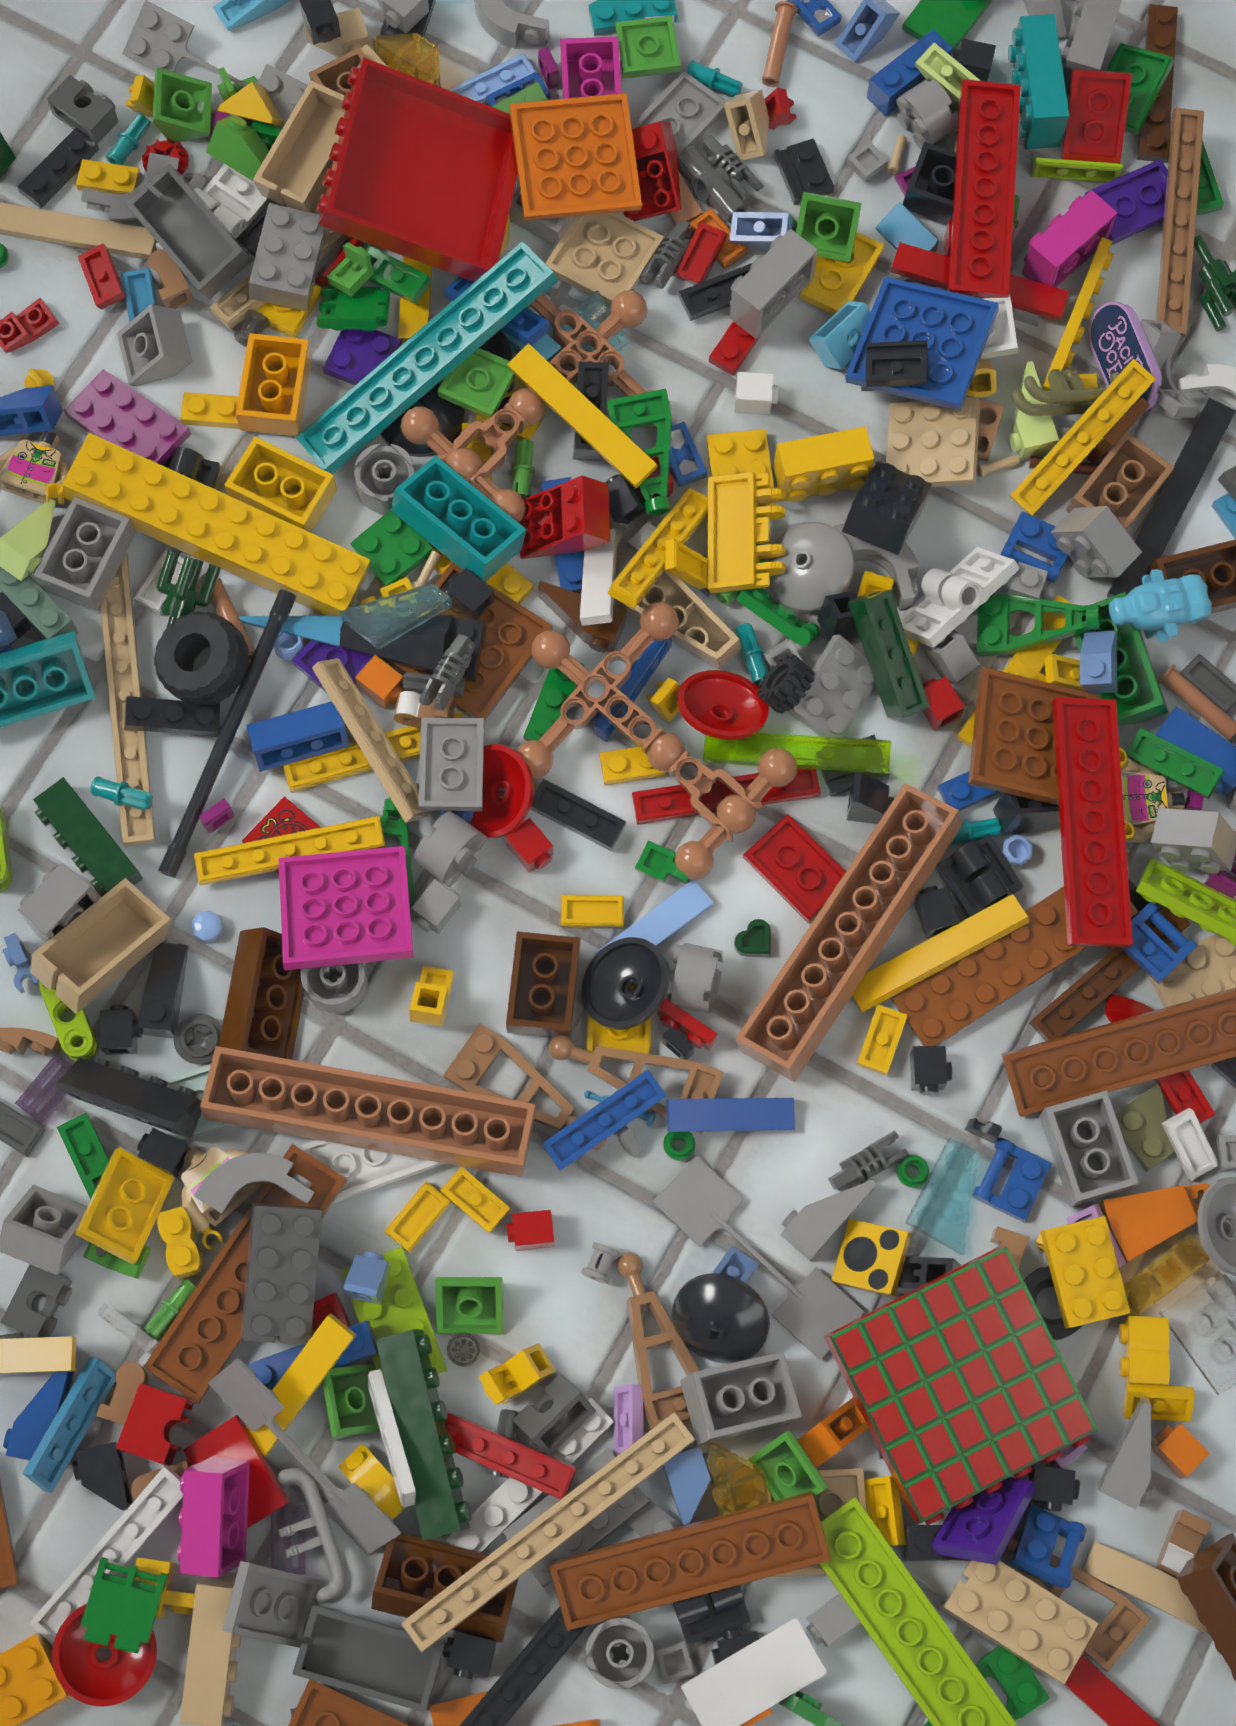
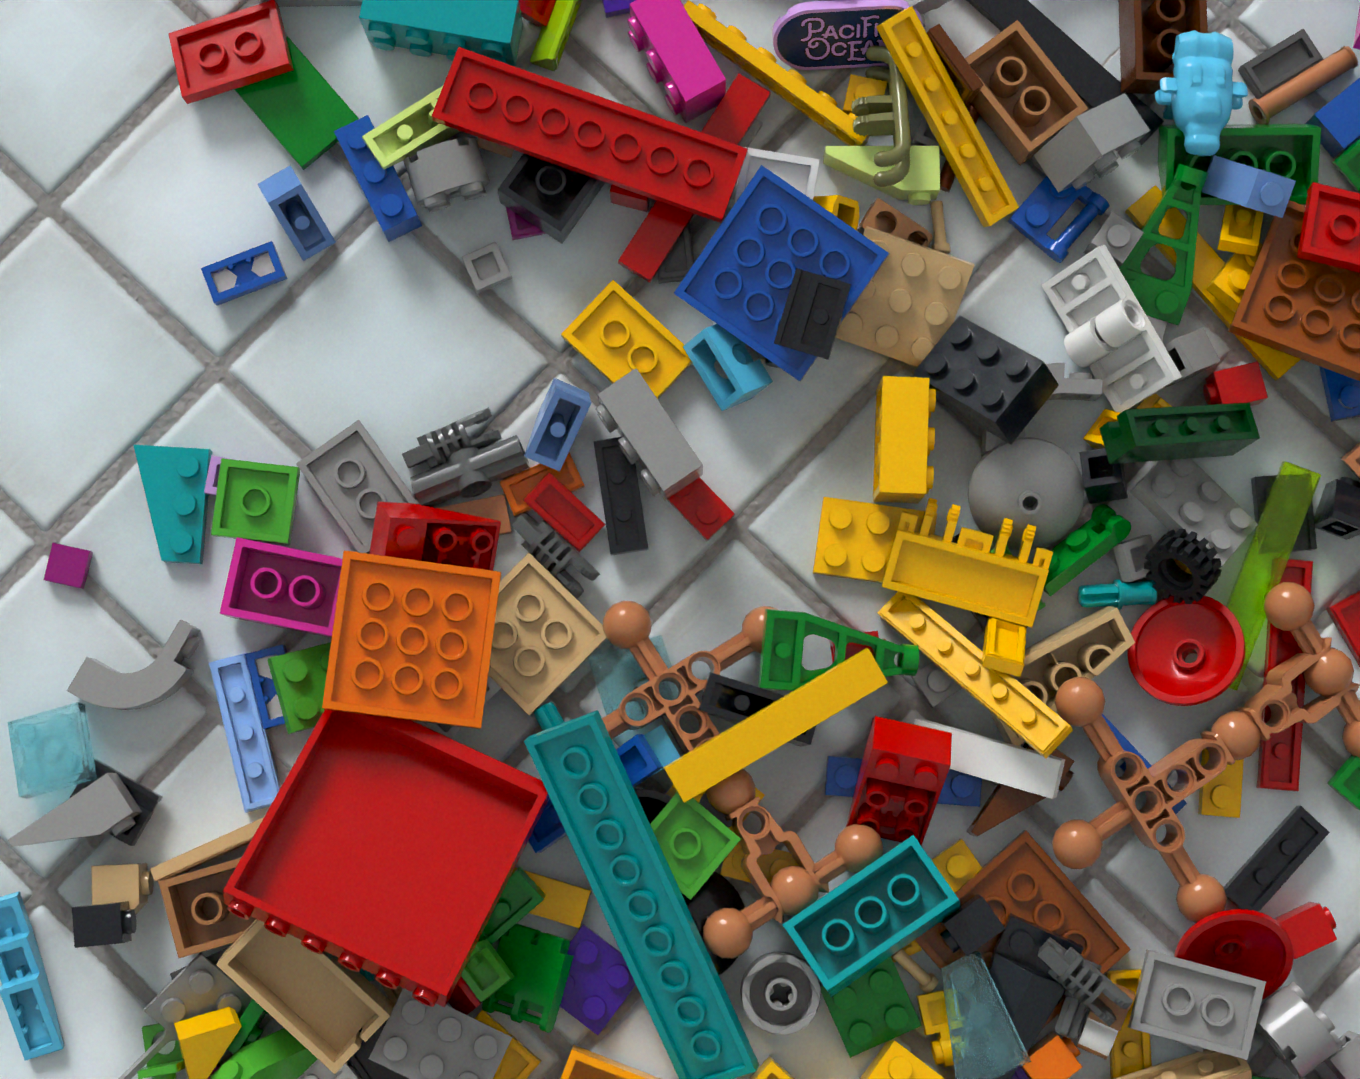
camera: 75 degrees left, 10 degrees up
(410, 55) = (187, 812): clear yellow slope -> none
(523, 468) = (804, 813): bright green axle -> none
(548, 68) = (242, 637): magenta tile -> none
(548, 706) = (1131, 860): green plate -> none
(624, 500) = (886, 702): black brick -> none
(665, 699) = (1155, 713): yellow tile -> none
(684, 457) = (843, 606): blue piece -> none
(714, 79) = (315, 427): teal axle -> none
(748, 124) = (397, 402): tan slope -> none
(755, 393) = (774, 496): white brick -> none
(778, 44) = (286, 331): nougat pin -> none
(778, 108) = (382, 360): red tile -> none
(803, 170) = (475, 350): black plate -> none
(829, 225) = (582, 346): bright green slope -> none
(874, 582) = (1071, 423): yellow tile -> none
(894, 166) = (500, 236): tan piece -> none
(904, 227) = (598, 247): dark azure slope -> none
(975, 57) = (382, 93): black brick -> none

